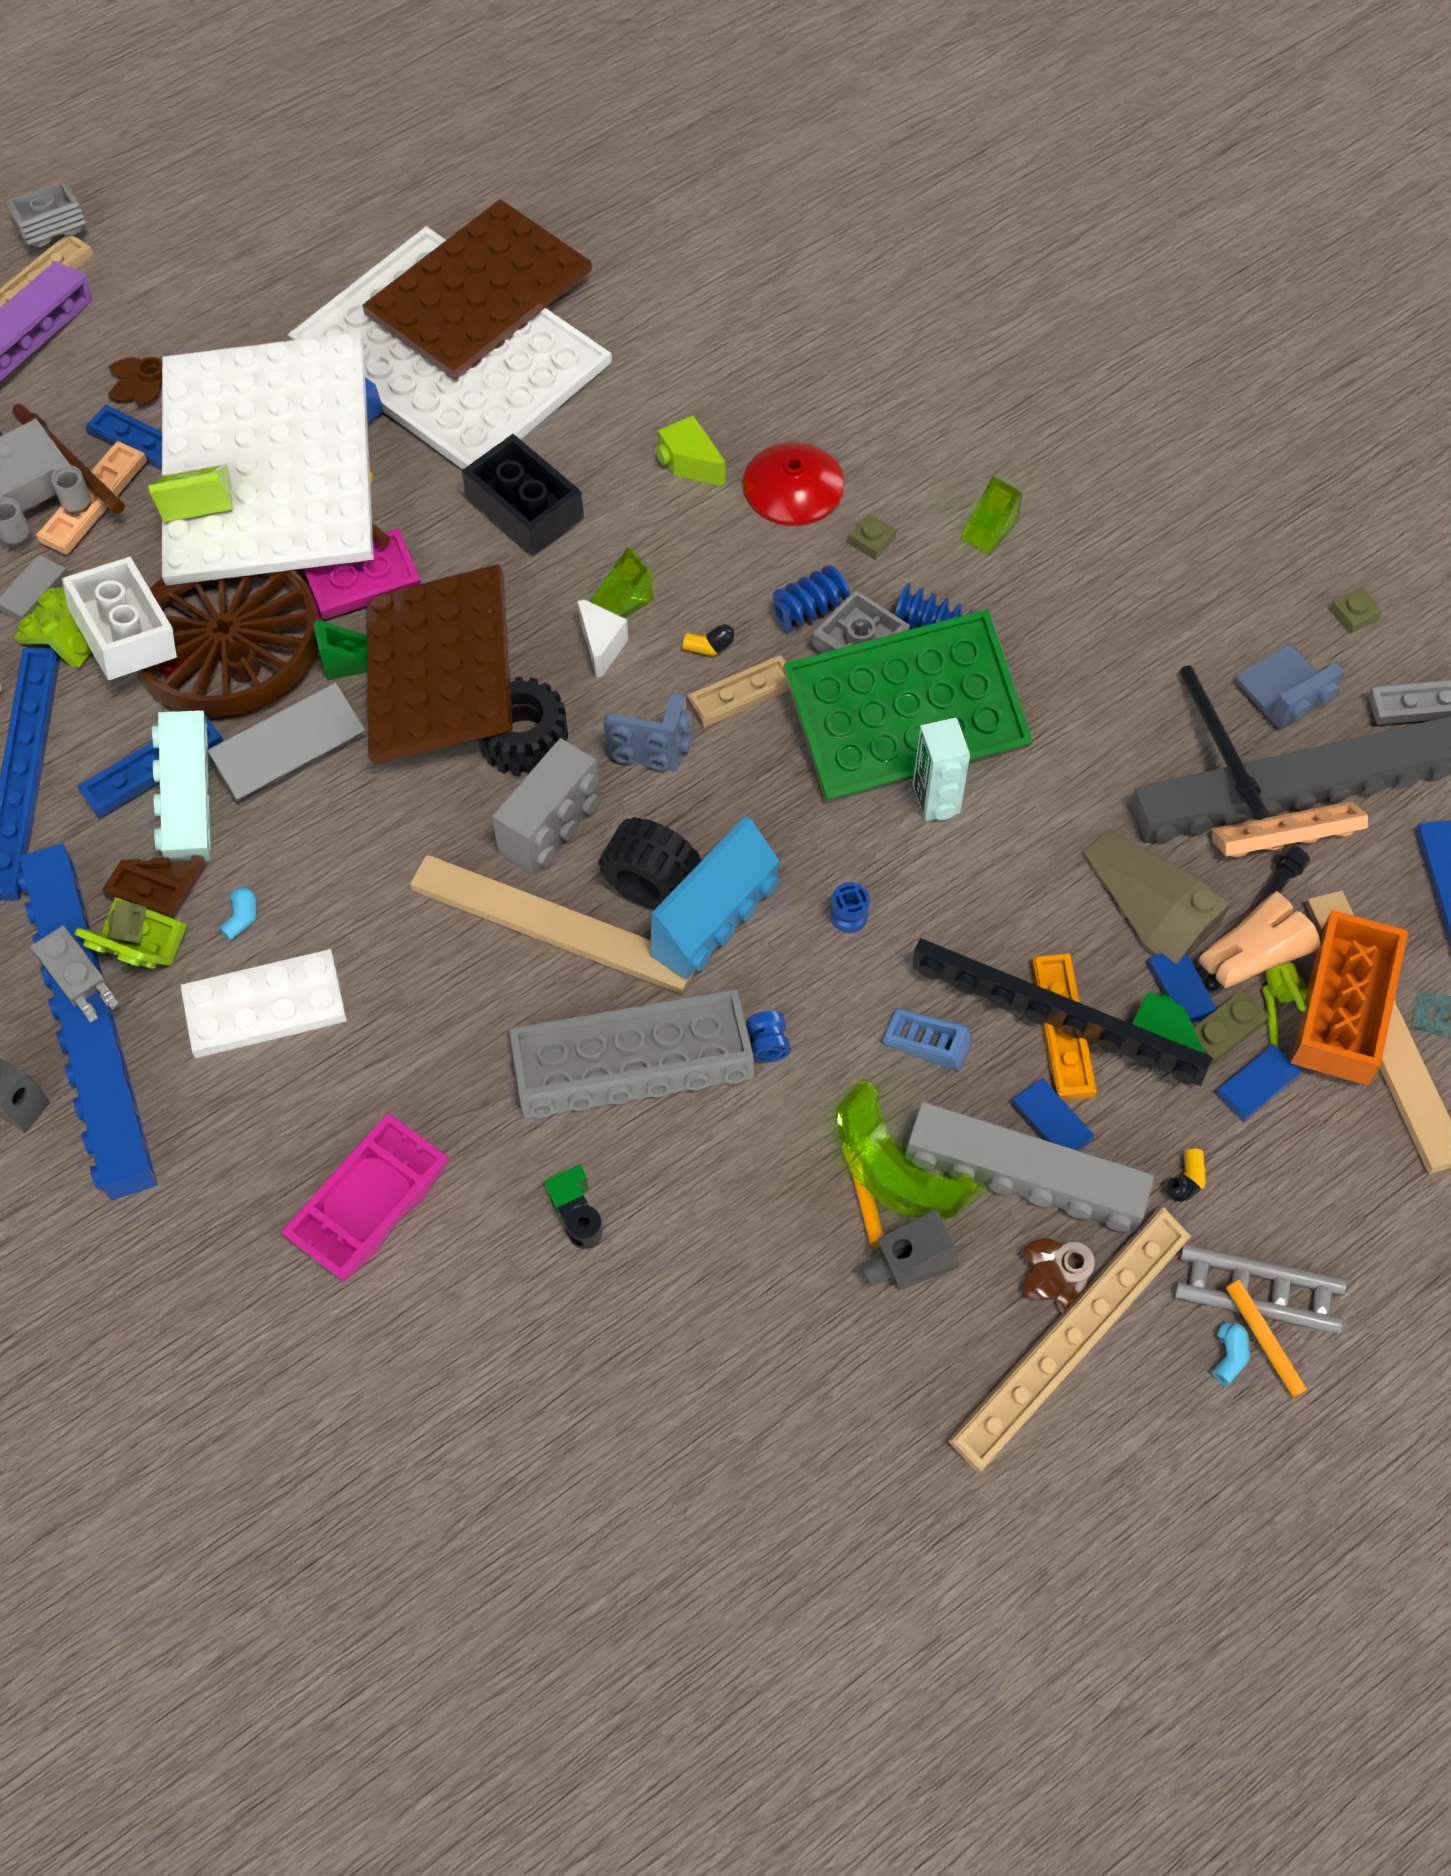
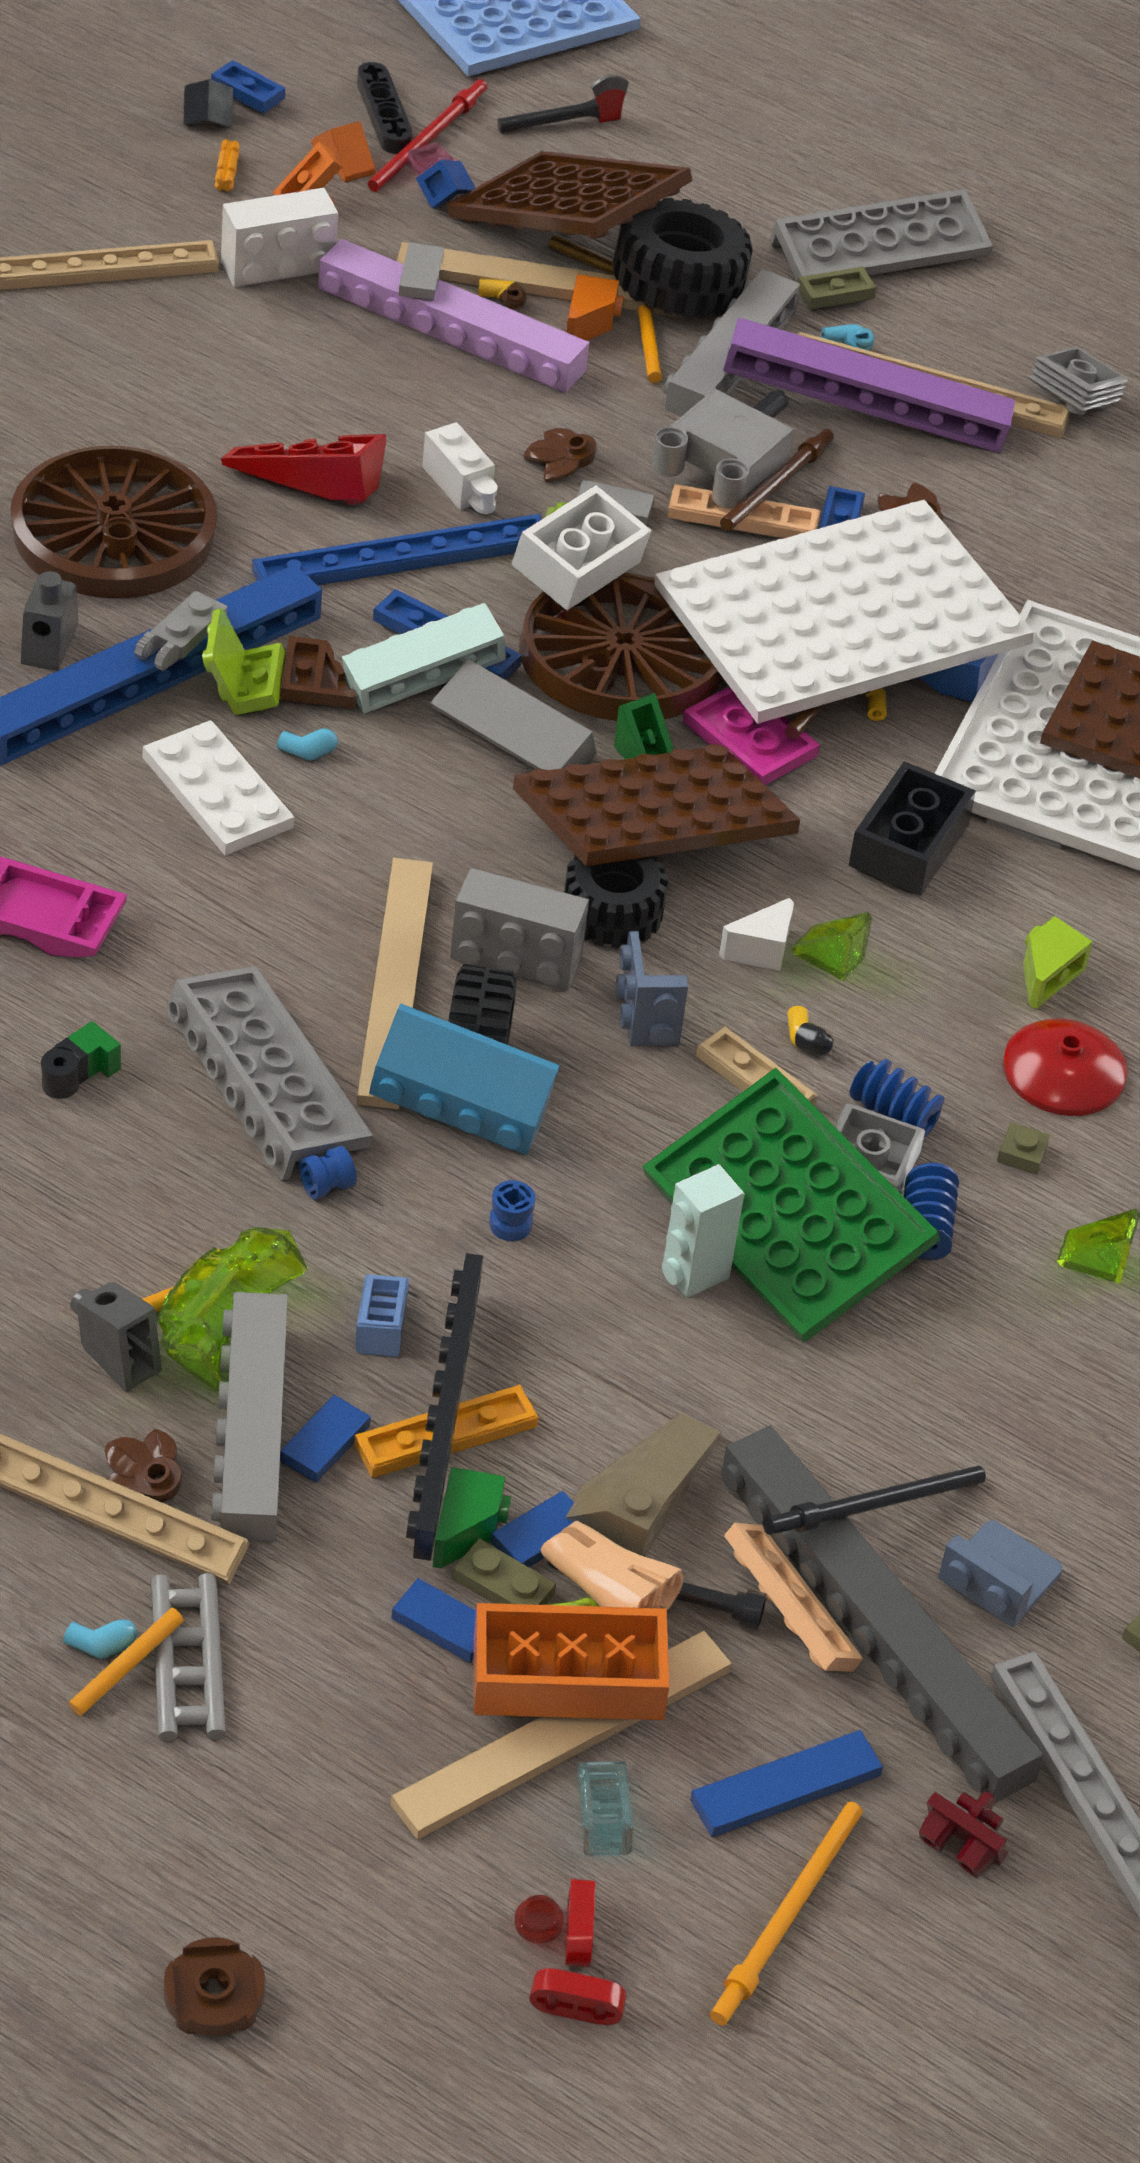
camera: 65 degrees right, 15 degrees down
(127, 921) = (252, 653): olive plate -> none
(192, 493) = (755, 555): lime slope -> none
(1191, 1180) = (295, 1573): arm -> none

